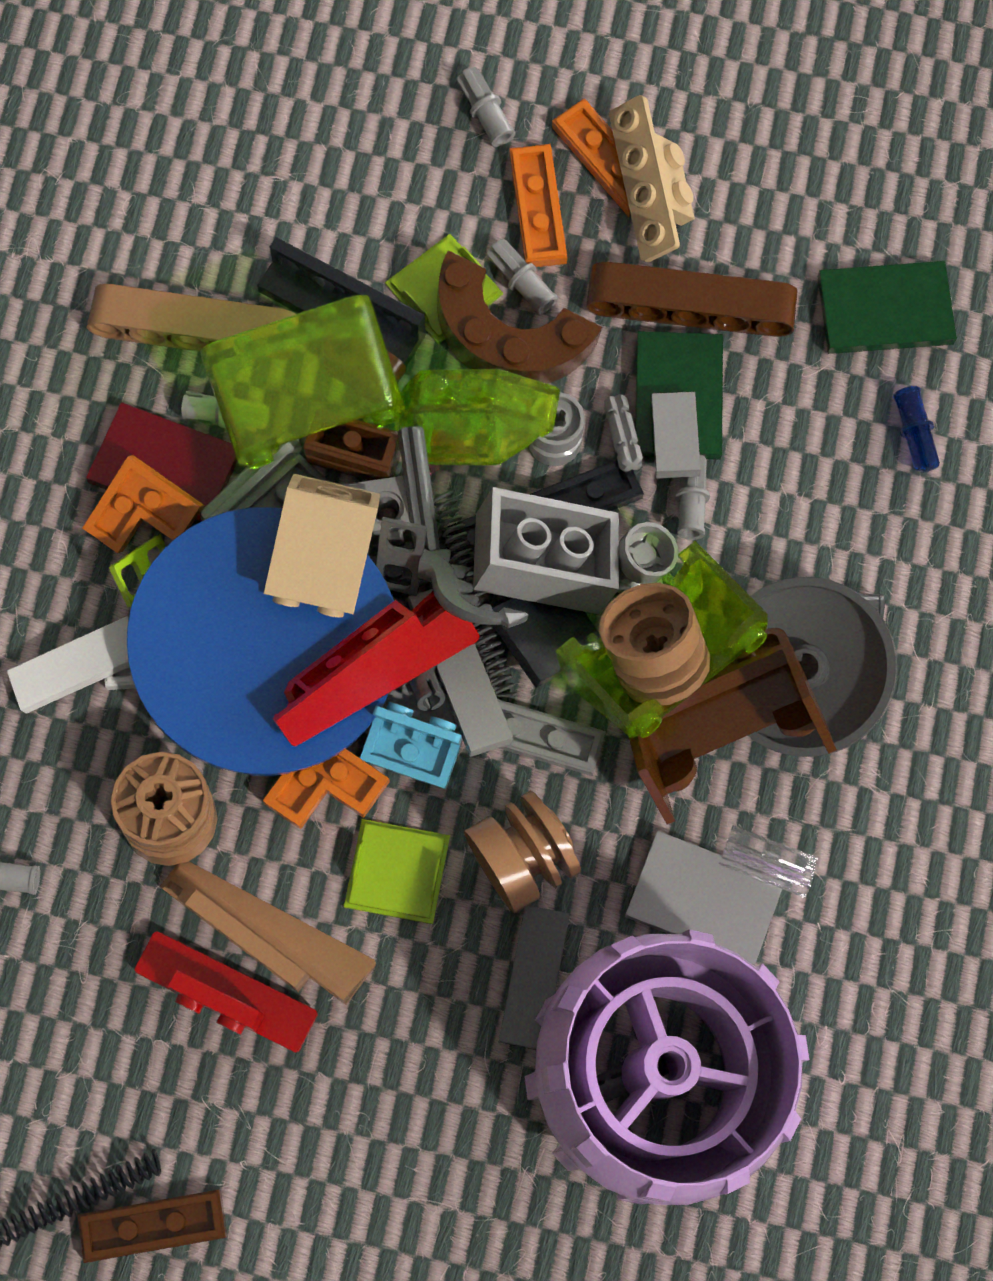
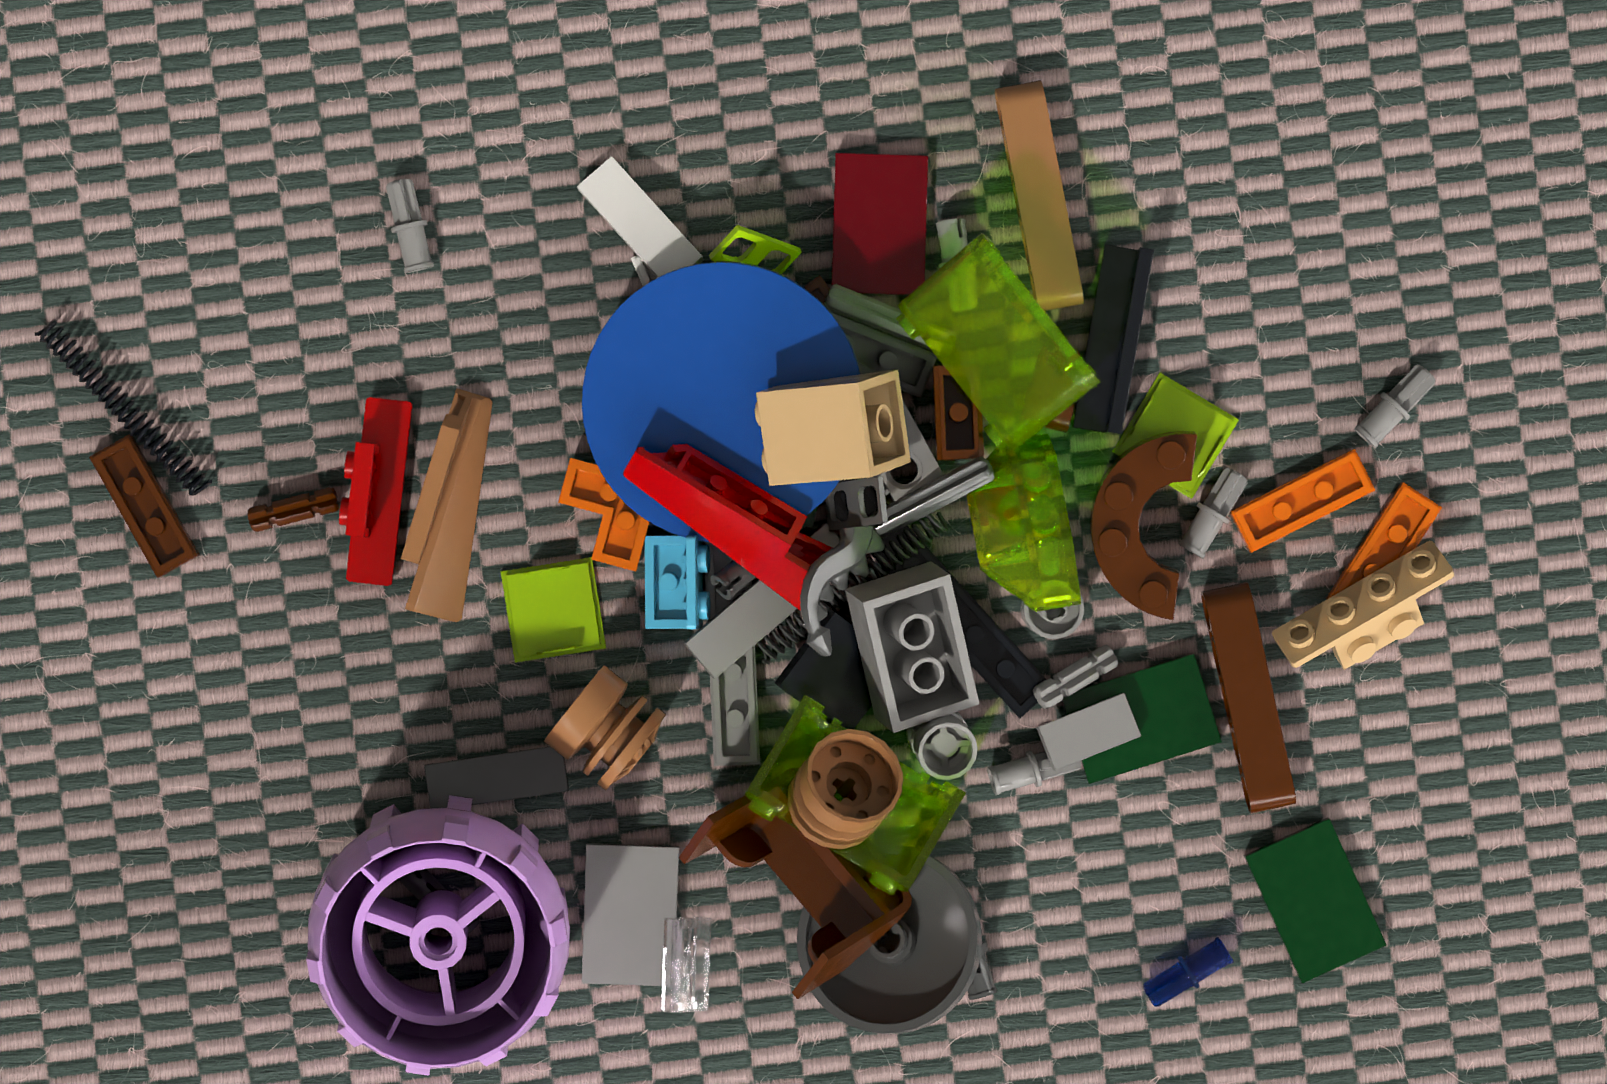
camera: 75 degrees right, 15 degrees up
(136, 496) = (832, 220): orange plate -> none
(184, 823) = (513, 394): medium nougat wheel -> none
(211, 1080) = (293, 509): none -> reddish brown axle

